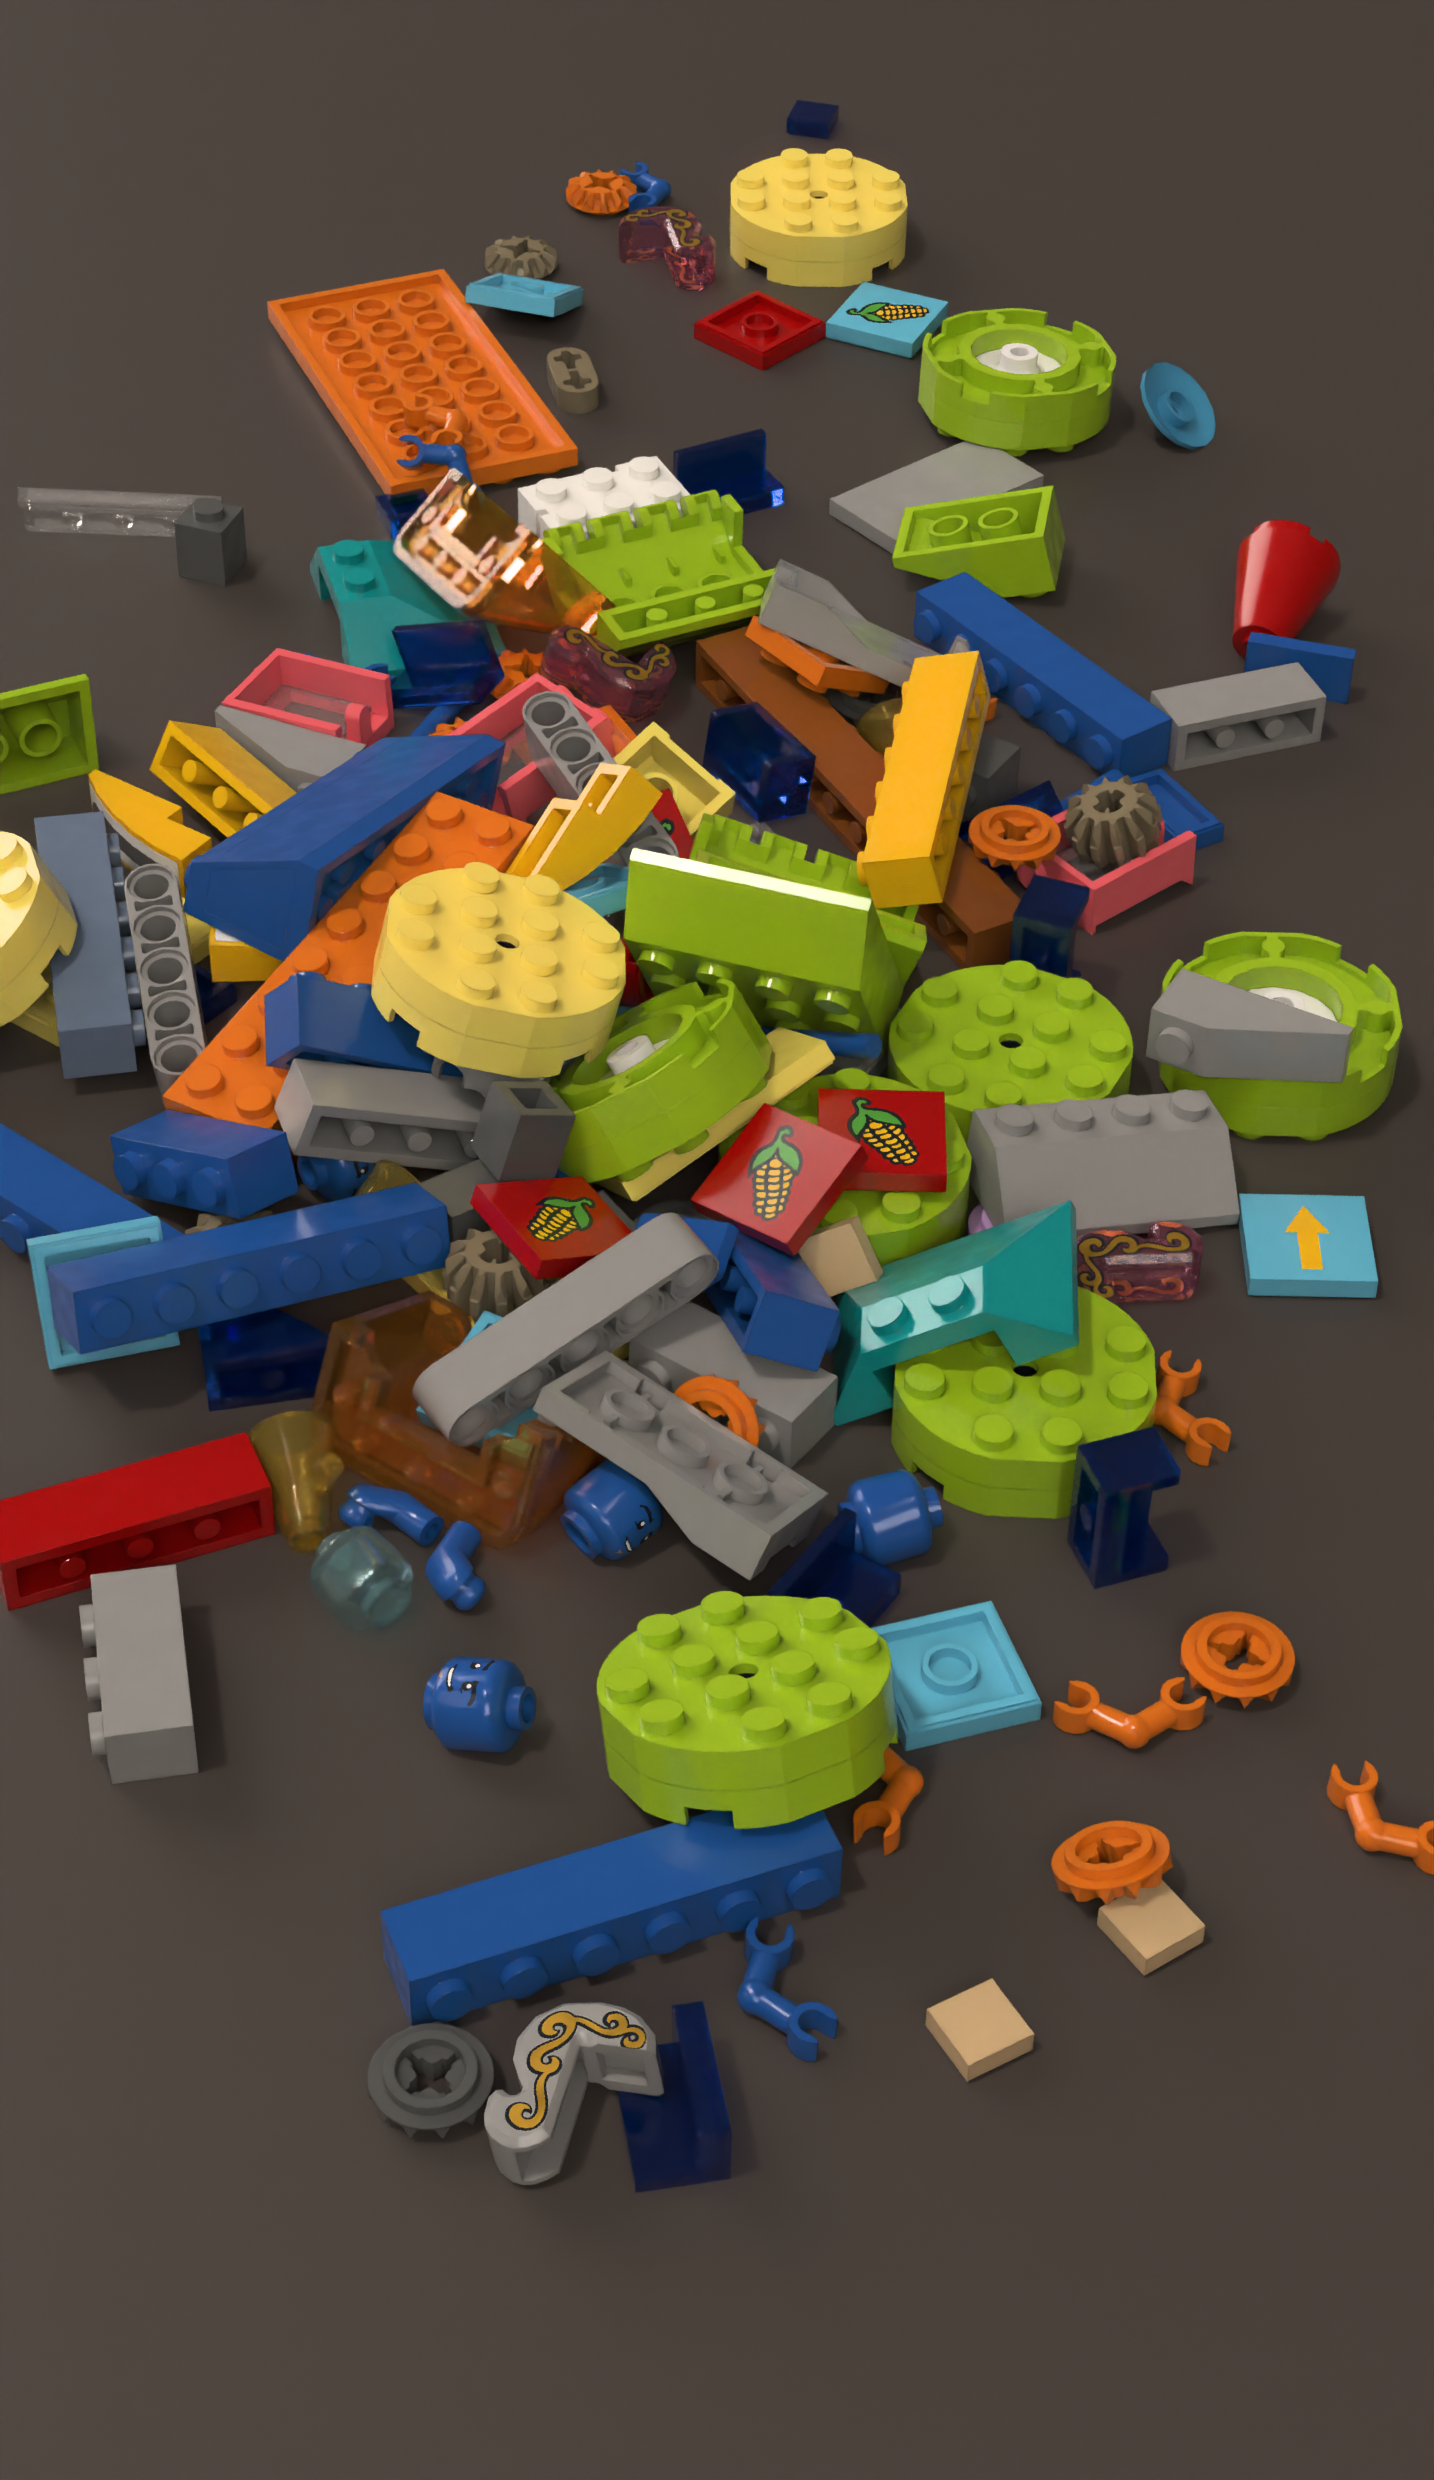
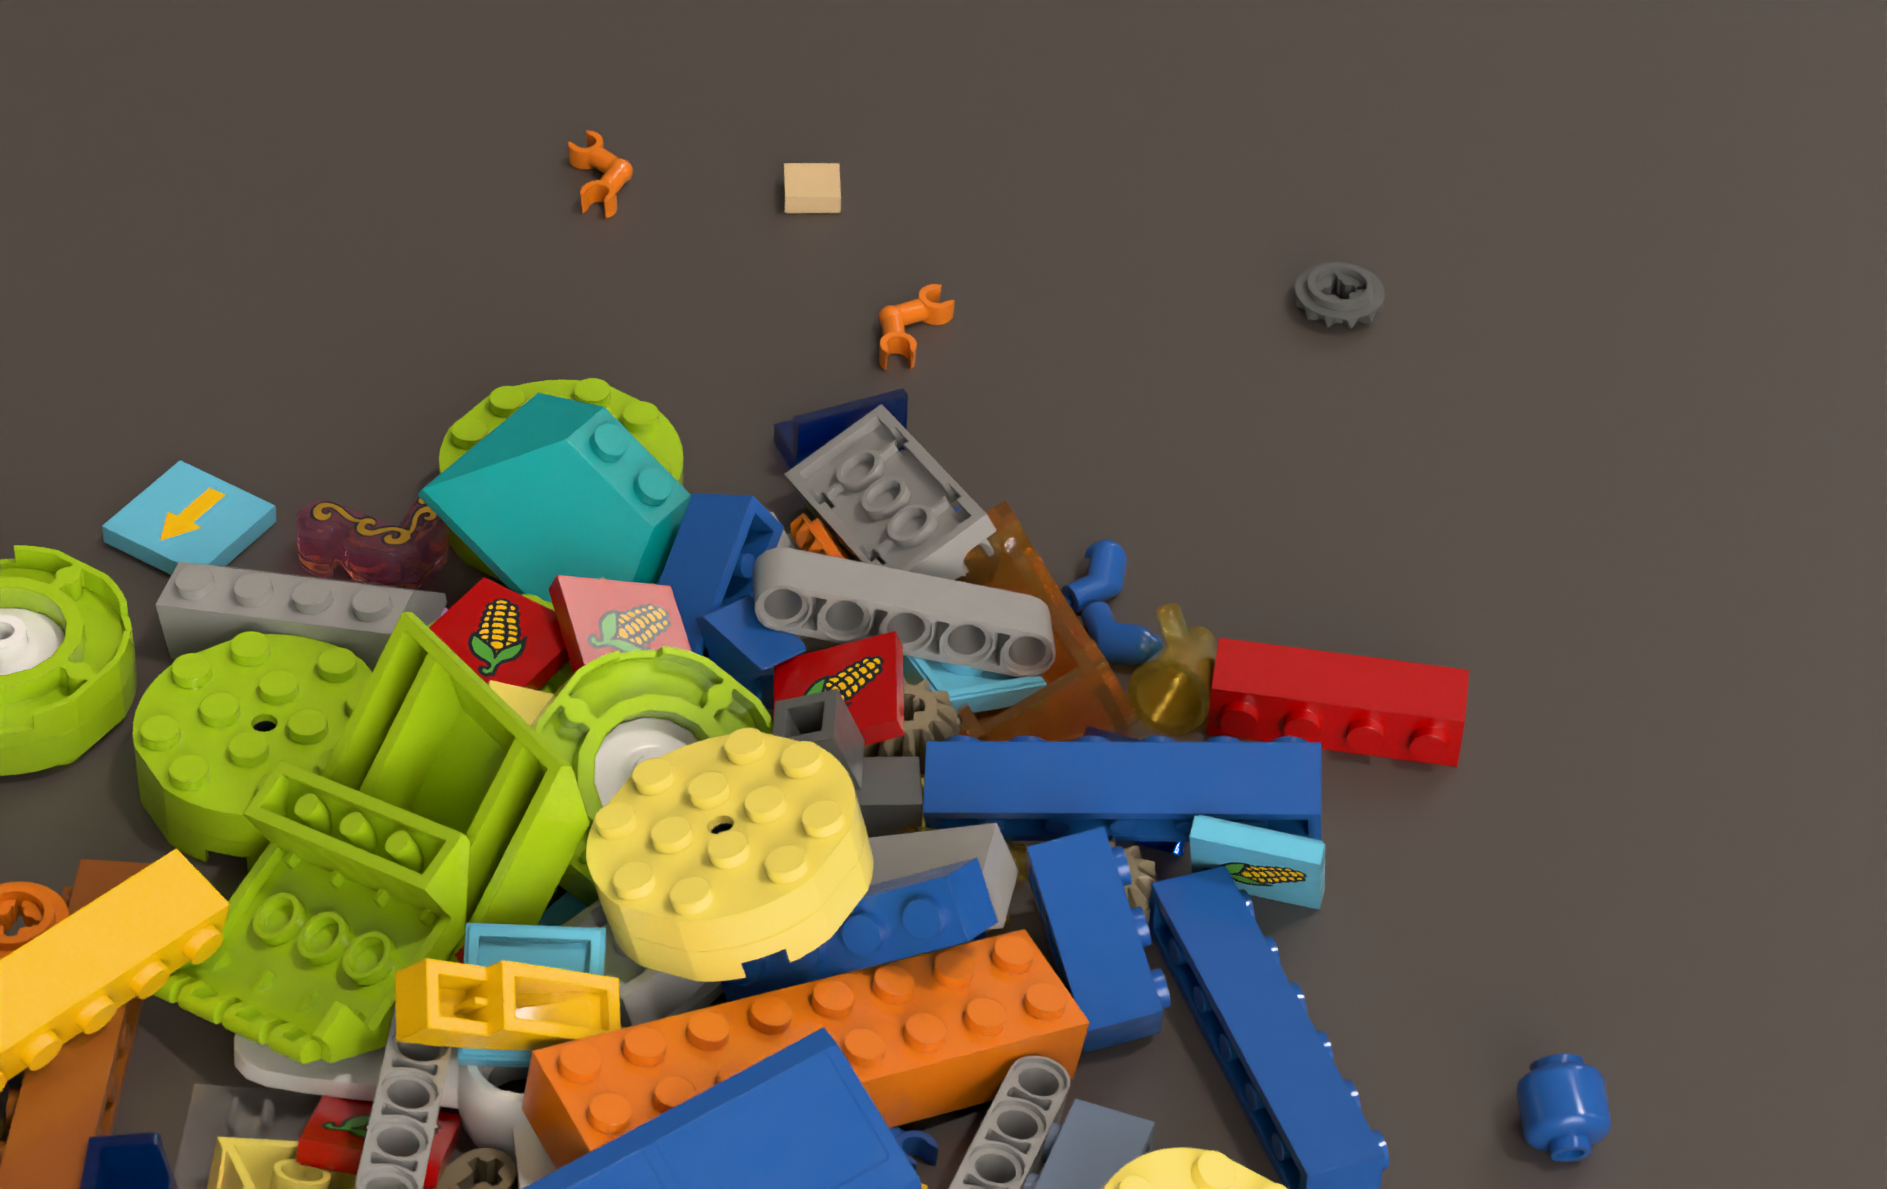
camera: 150 degrees left, 0 degrees up
(139, 1675) = (1394, 583): light grey brick -> none
(361, 1578) = (1183, 576): clear light blue head -> none
(479, 1704) = (1157, 460): blue head -> none
(553, 2067) = (1260, 249): light grey animal -> none
(602, 1909) = (1155, 317): blue brick -> none
(686, 2130) = (1191, 226): clear blue panel -> none
(748, 1709) = (988, 334): lime piece -> none
(759, 1998) = (1093, 255): blue arm -> none
(893, 1516) = (747, 456): blue head -> none
(956, 1676) = (795, 366): medium azure tile -> none
(979, 2029) = (972, 185): tan tile -> none
(1047, 925) = (118, 802): clear blue panel -> none
(1113, 1505) = (590, 337): clear blue panel -> none
(1133, 1729) = (663, 284): orange arm -> none
(1133, 1854) = (794, 189): orange gear -> none
(1193, 1431) = (416, 472): orange arm -> none
(1223, 1636) = (611, 286): orange gear -> none
(1243, 1035) = (107, 580): light grey slope -> none

